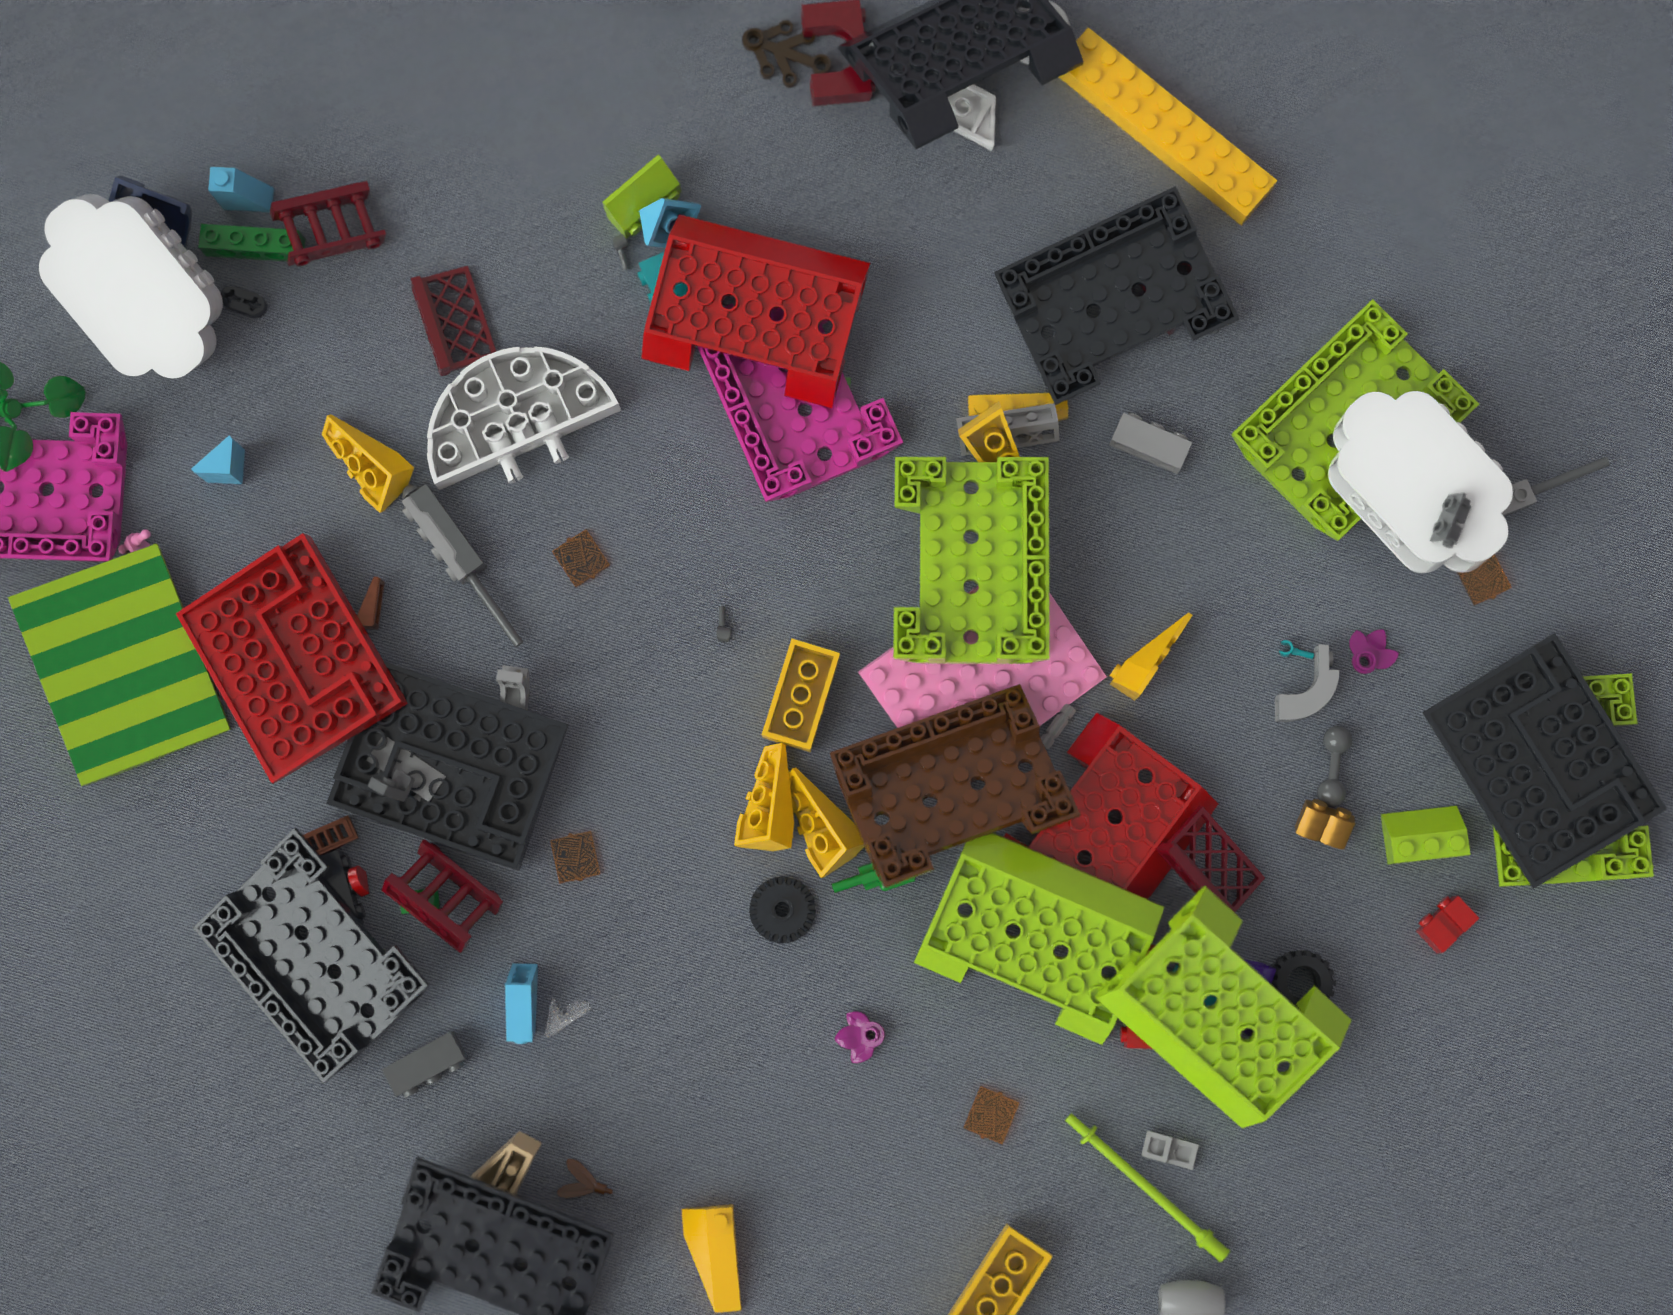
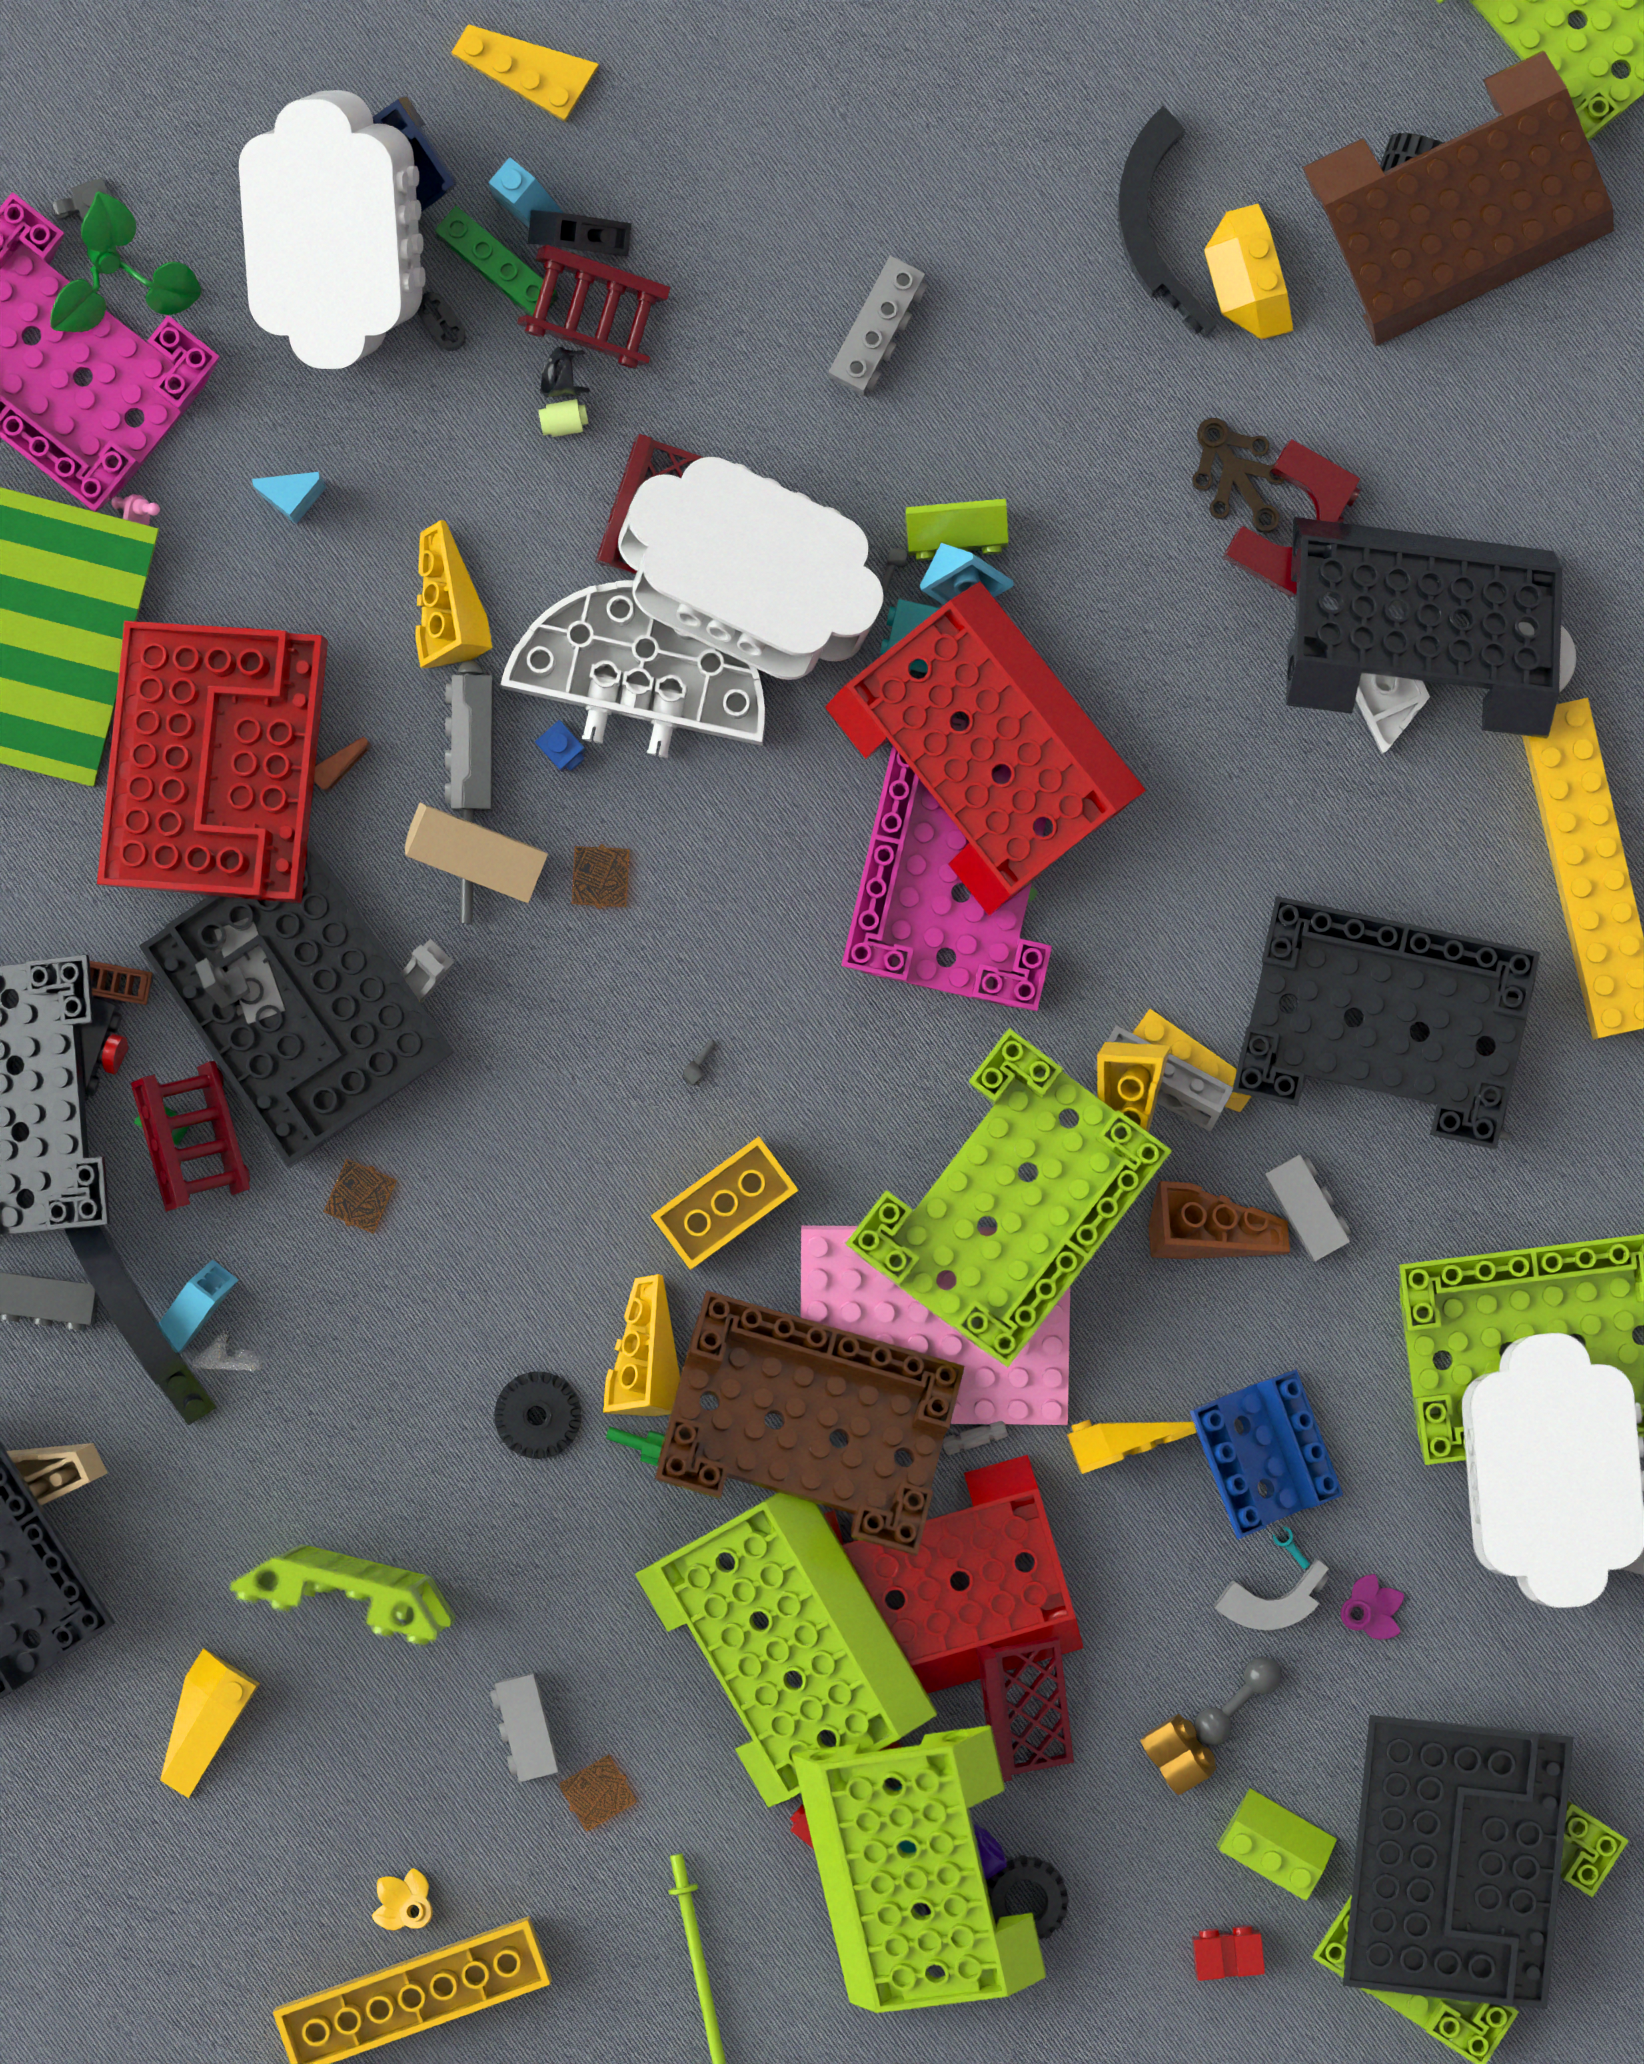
camera: 40 degrees right, 5 degrees up
(190, 120) = (532, 71): none -> yellow wing
(286, 186) = (579, 233): none -> black slope
(345, 285) = (564, 385): none -> black piece
(359, 304) = (563, 418): none -> yellowish green brick
(492, 595) = (474, 852): none -> tan brick
(493, 1034) = (137, 1323): none -> black arch
(500, 498) = (561, 747): none -> blue bracket
(507, 117) = (877, 325): none -> light grey brick
(534, 304) = (750, 567): none -> white brick
(586, 1185) = (123, 1549): reddish brown piece -> none
(710, 1111) = (393, 1590): none -> lime slope
(769, 813) = (600, 1301): yellow wedge -> none
(856, 1036) = (516, 1607): magenta plate -> none
(917, 1107) = (525, 1727): none -> light grey brick
(918, 1274) = (399, 1898): none -> yellow plate
(1096, 499) = (1202, 1225): none -> dark orange wedge
(1170, 1150) = (757, 1968): light grey slope -> none
(1240, 598) = (1276, 1447): none -> blue slope
(1454, 509) = (1559, 1528): dark grey hinge -> none
(1485, 581) = (1555, 1627): clear orange piece -> none

